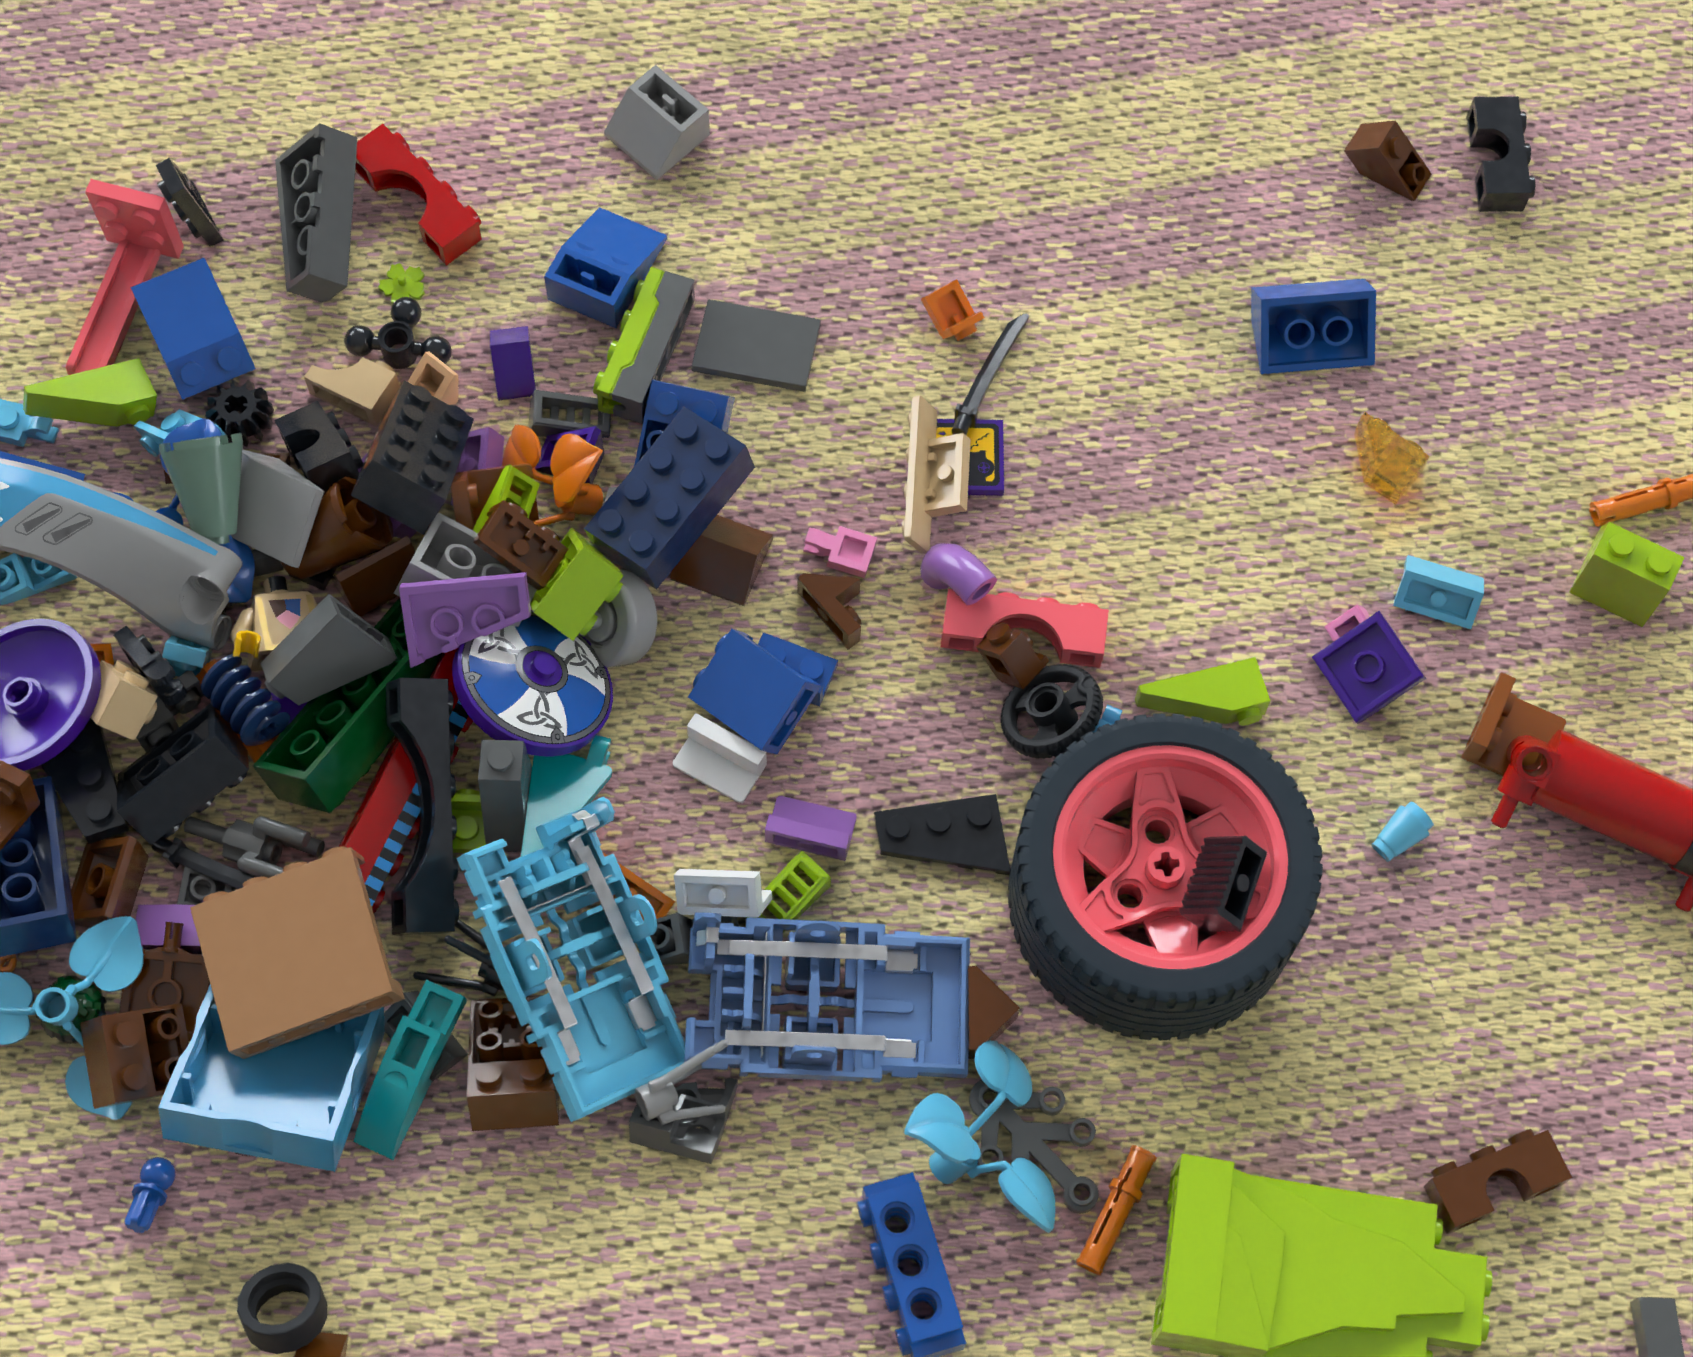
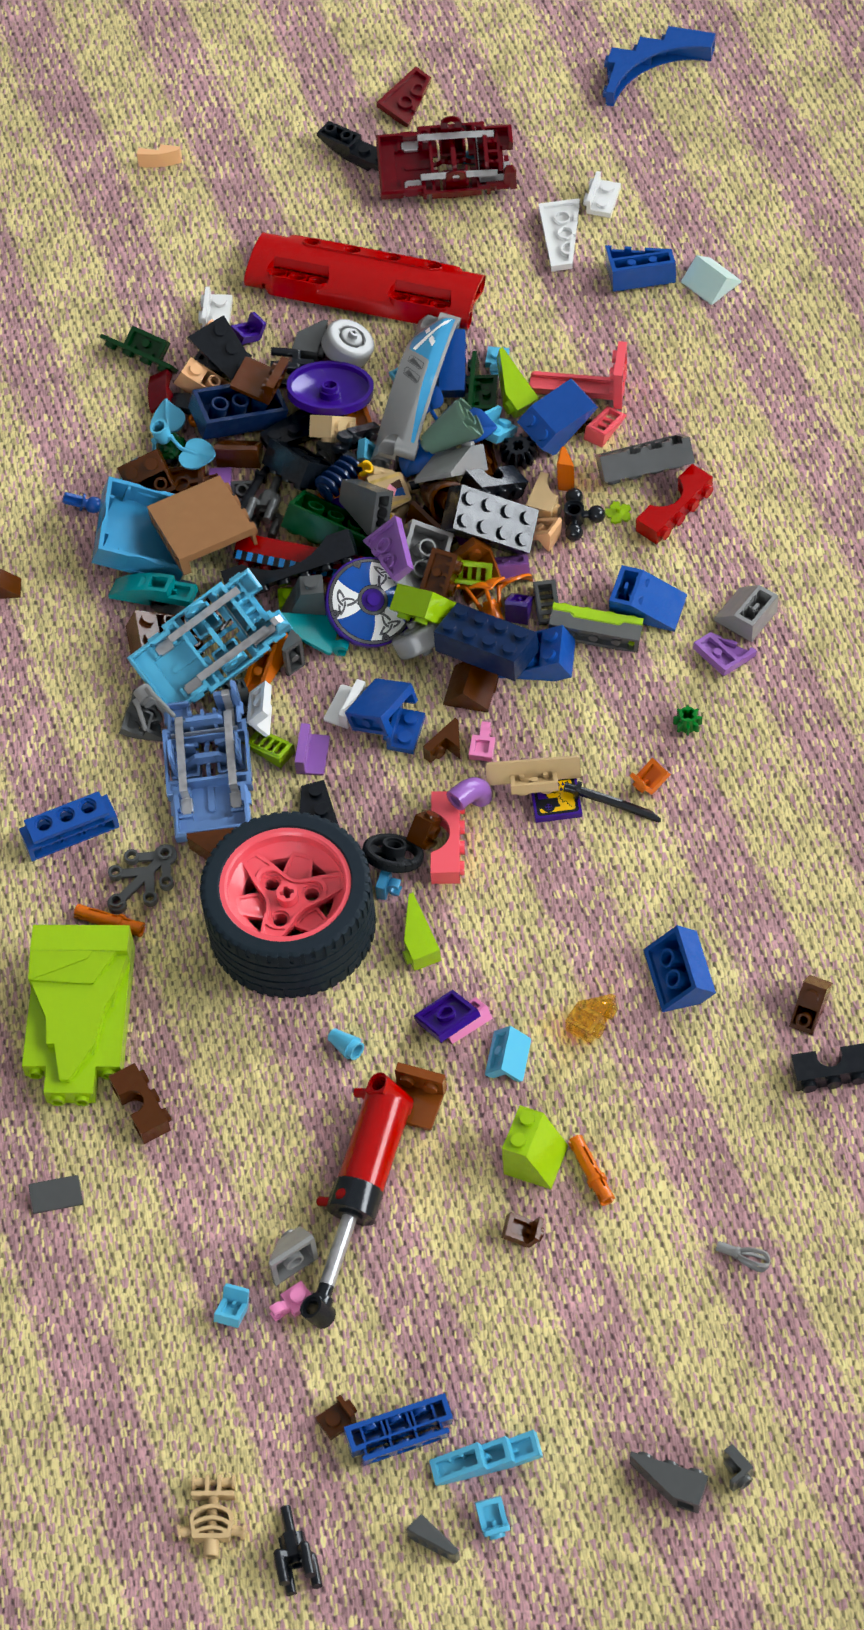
camera: 90 degrees right, 10 degrees down
(94, 451) = (482, 388): none -> dark green bracket
(187, 202) = (638, 396): black wing -> none
(234, 287) = (598, 436): none -> coral slope
(269, 1283) = (30, 550): black tyre -> none
(312, 337) = (565, 470): none -> orange slope
(512, 362) = (576, 568): dark purple slope -> none
(617, 834) = (293, 653): none -> dark grey slope
(728, 175) = (722, 653): none -> medium lavender wing
(756, 345) = (610, 685): dark grey tile -> none
(851, 242) = (687, 720): none -> green gear
(942, 1127) = (124, 808): medium azure plant -> none
(1223, 883) = (273, 914): black brick -> none

